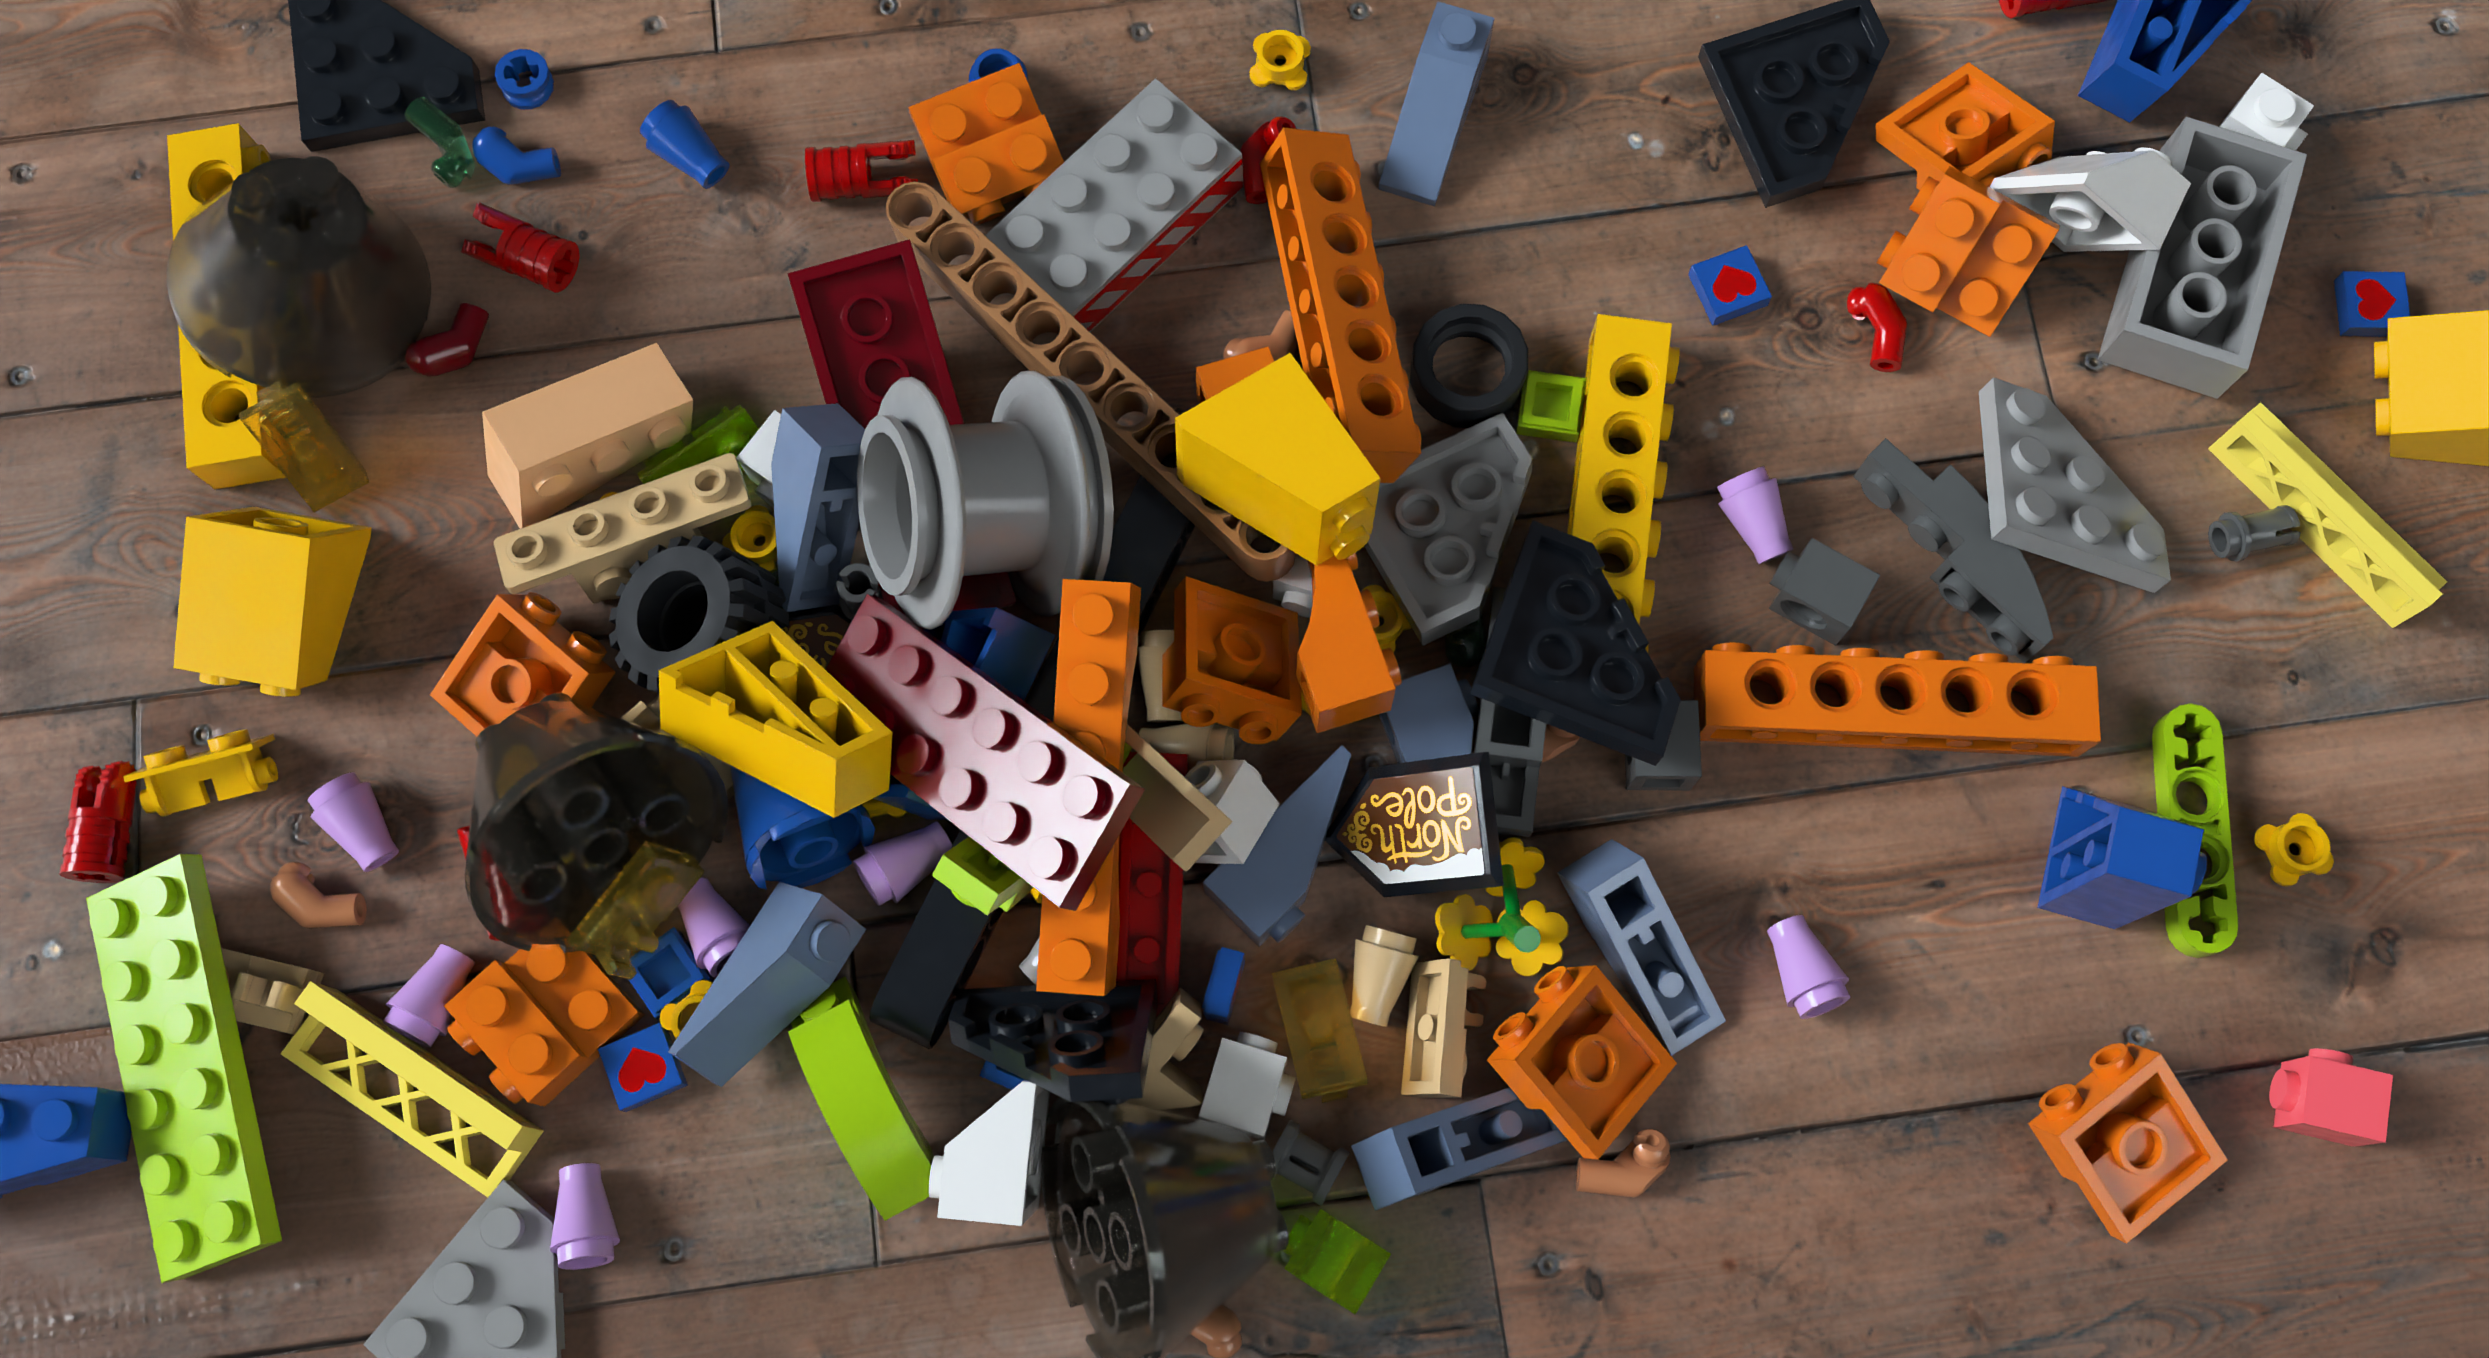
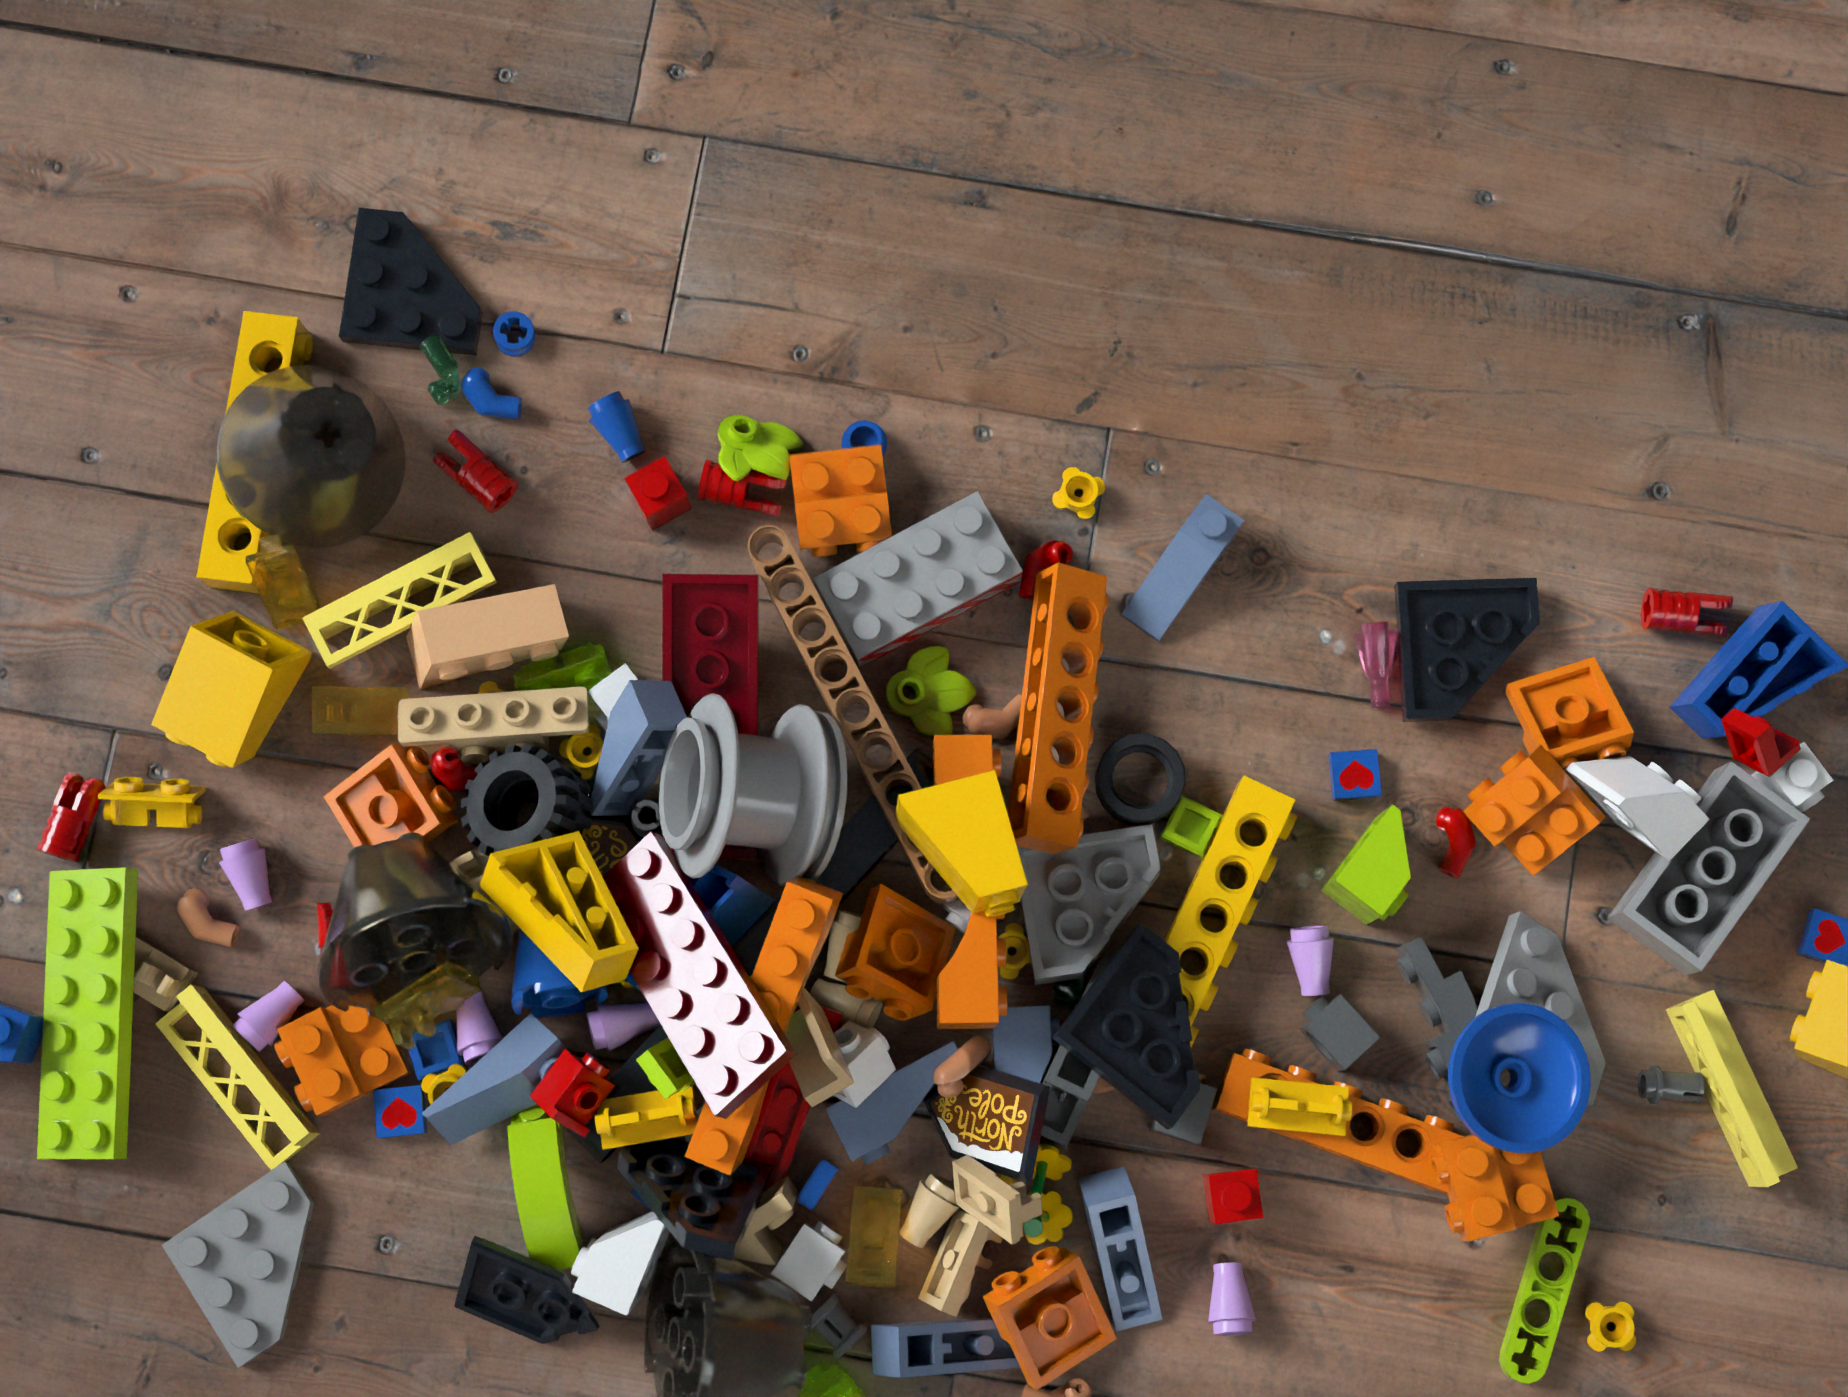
camera: 15 degrees right, 5 degrees up
(441, 574) = (356, 710): none -> clear yellow plate
(451, 419) = (395, 590): none -> light yellow fence
(452, 348) = (405, 534): dark red arm -> none
(583, 1219) = (332, 1206): lavender cone -> none
(584, 607) = (451, 770): none -> red arm
(758, 203) = (658, 493): none -> red brick
(852, 117) = (756, 447): none -> lime plate
(863, 954) = (573, 1090): none -> red brick
(871, 1252) = (521, 1294): none -> black tile
(970, 963) = (645, 1118): none -> yellow hinge
(1178, 336) = (936, 689): none -> lime plate
(1360, 767) = (959, 1064): none -> nougat arm
(1461, 922) = (992, 1200): none -> tan plate
(1704, 132) = (1376, 652): none -> clear pink cone
(1763, 832) = (1232, 1196): none -> red brick
(1800, 378) = (1374, 871): none -> lime slope
(1812, 687) = (1299, 1106): none -> yellow hinge
(2090, 702) = (1491, 1188): none -> orange plate
(2102, 538) = (1546, 1078): none -> blue dish
(2117, 861) = (1474, 1295): blue wedge -> none
(2209, 82) = (1757, 742): none -> red bracket

